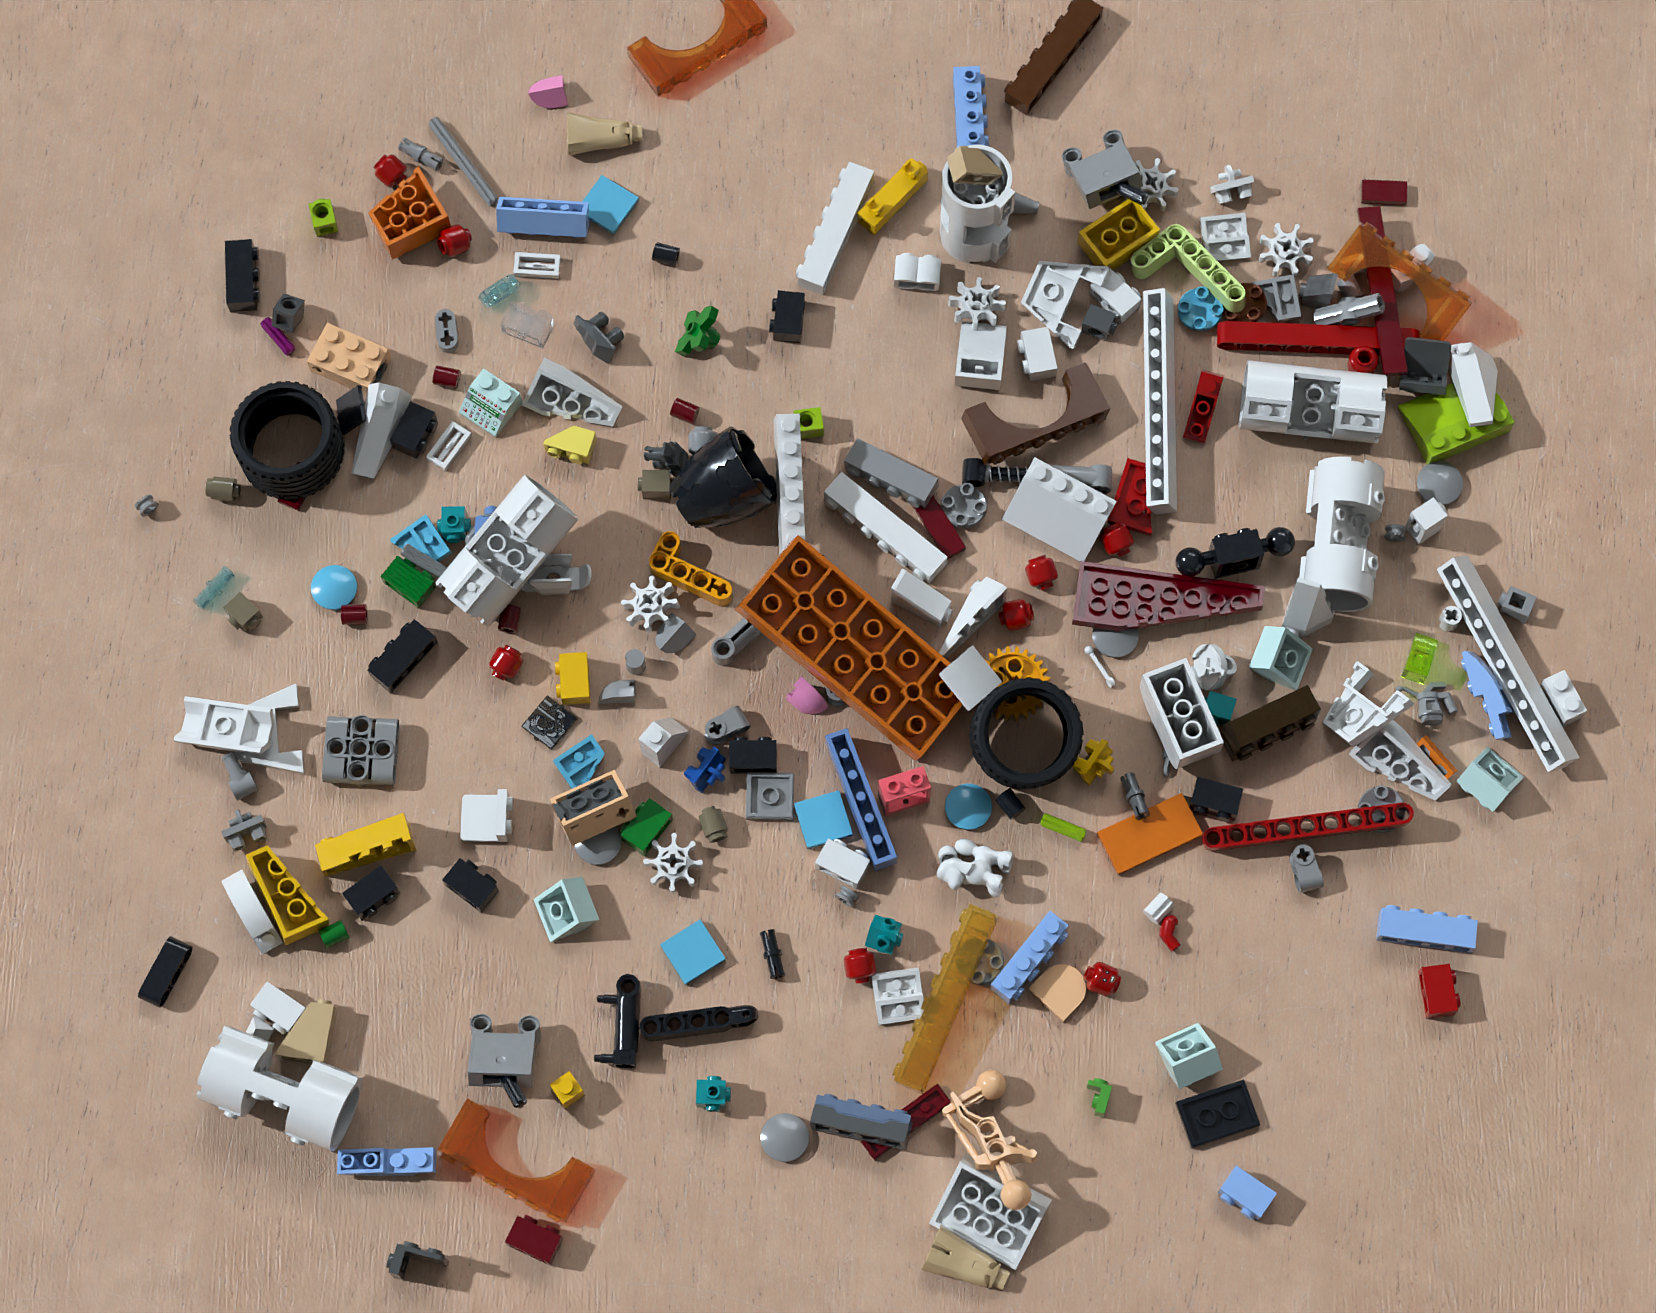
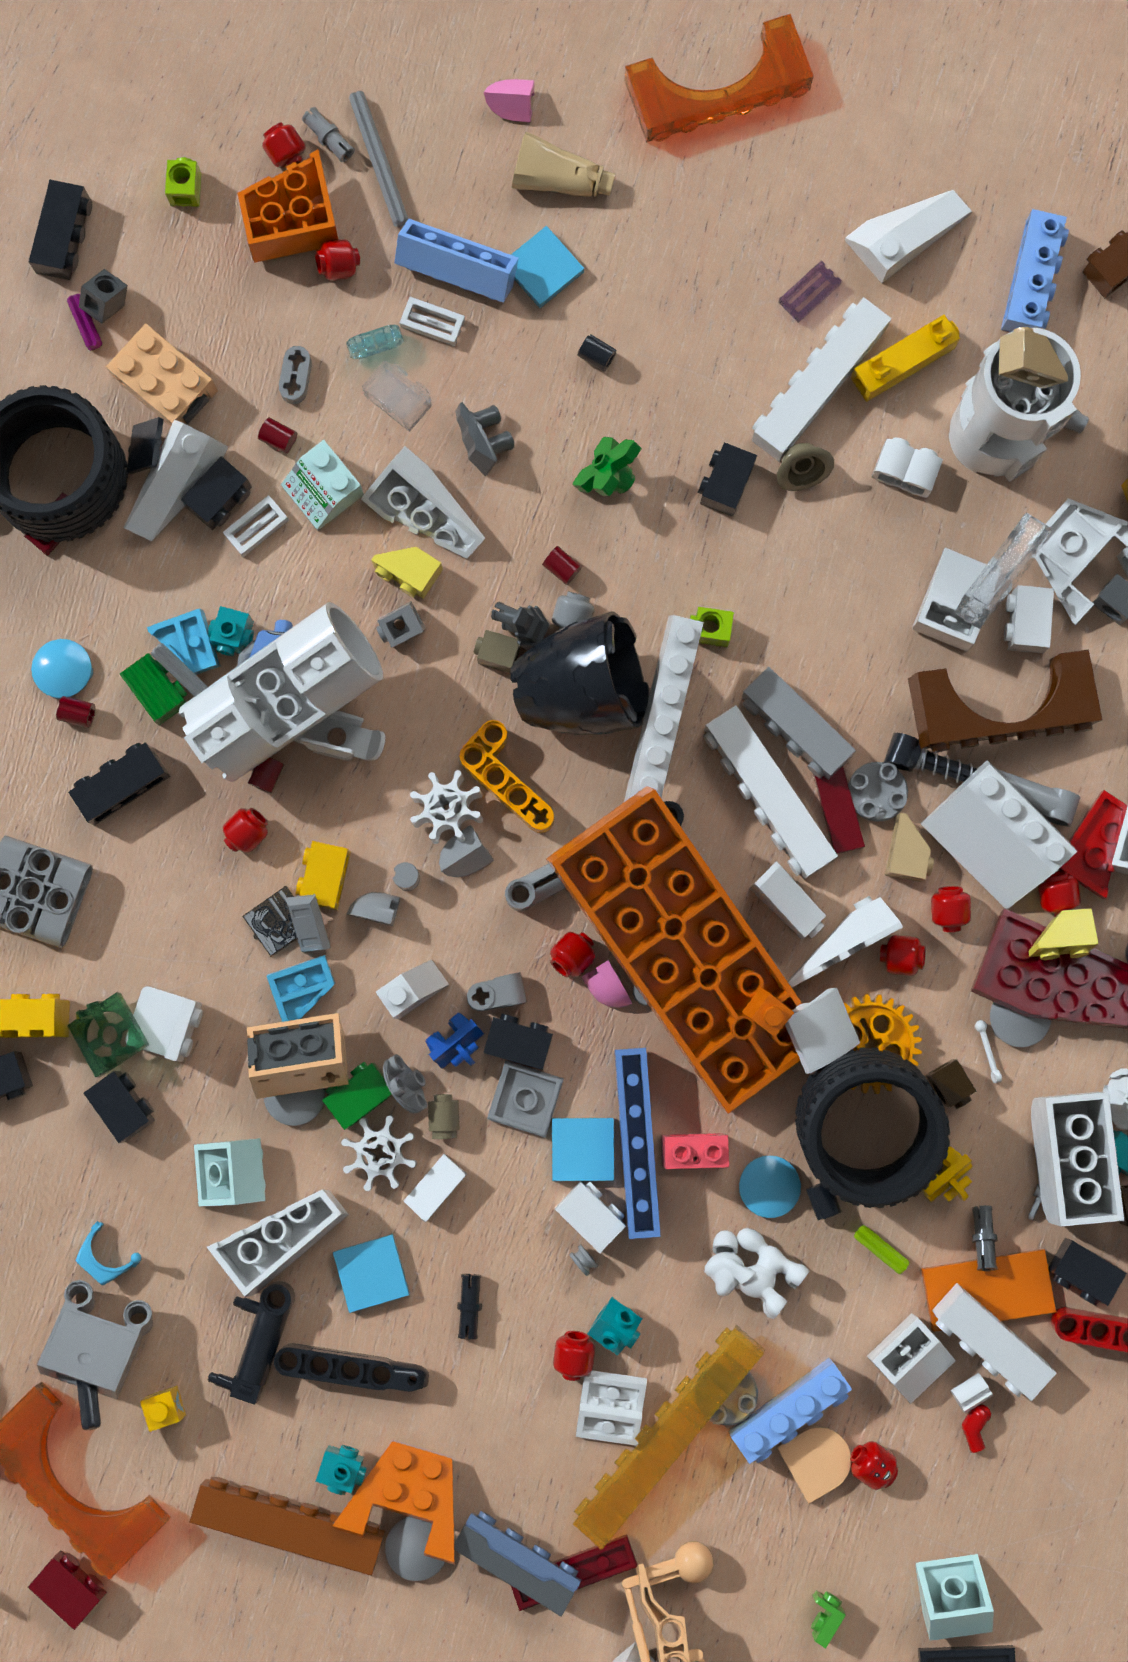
camera: 15 degrees right, 10 degrees up
(459, 845) = (95, 1010): none -> clear green piece
(491, 1006) = (96, 1270): none -> medium azure helmet
(572, 714) = (308, 923): none -> light grey tile
(584, 479) = (413, 625): none -> light grey brick
(617, 944) = (268, 1247): none -> white wedge
(679, 808) = (405, 1084): none -> light grey dish
(684, 1147) = (284, 1525): none -> dark orange brick
(722, 877) = (435, 1187): none -> white slope
(766, 1089) = (411, 1485): none -> orange wing
(774, 682) = (572, 954): none -> red head
(817, 154) = (827, 274): none -> clear purple tile
(842, 292) = (804, 467): none -> dark tan hat
(864, 112) = (901, 235): none -> white wedge
(926, 672) = (768, 1012): none -> orange brick
(976, 303) = (970, 530): white gear -> none
(999, 542) = (908, 852): none -> tan slope
(1006, 323) = (1003, 571): none -> clear slope
(1081, 694) = (951, 1084): none -> dark brown brick
(1107, 895) = (911, 1358): none -> white slope
(1129, 564) = (1067, 933): none -> light yellow slope
(1163, 865) = (994, 1342): none -> white brick

